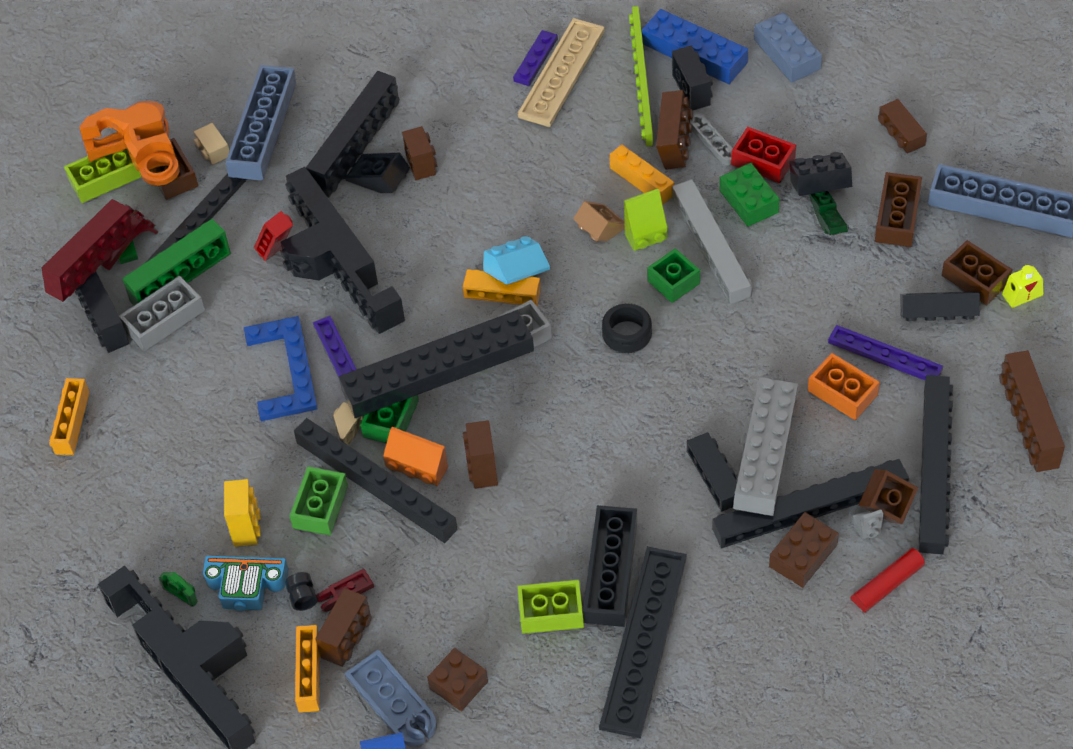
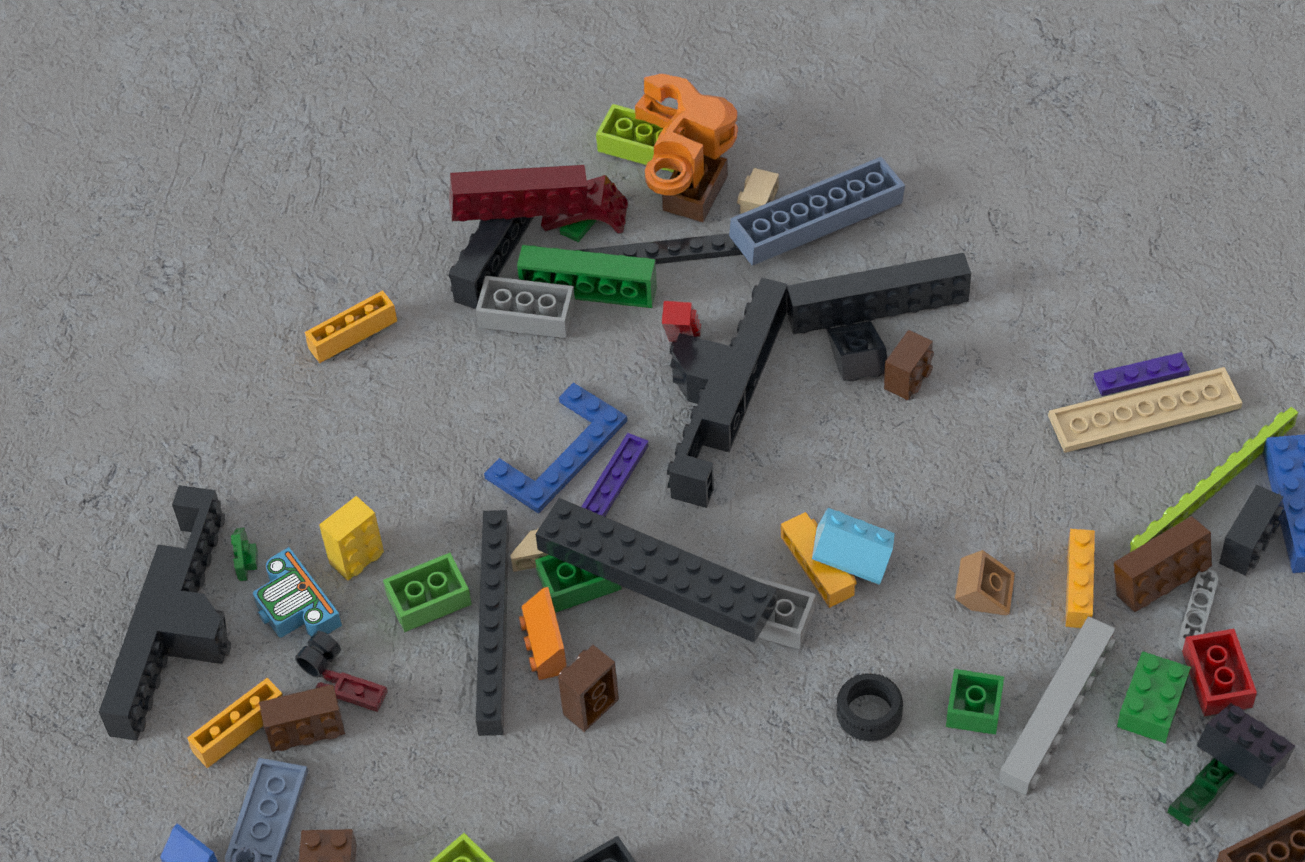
camera: 50 degrees right, 0 degrees up
(645, 220) = (1014, 623): lime slope -> none

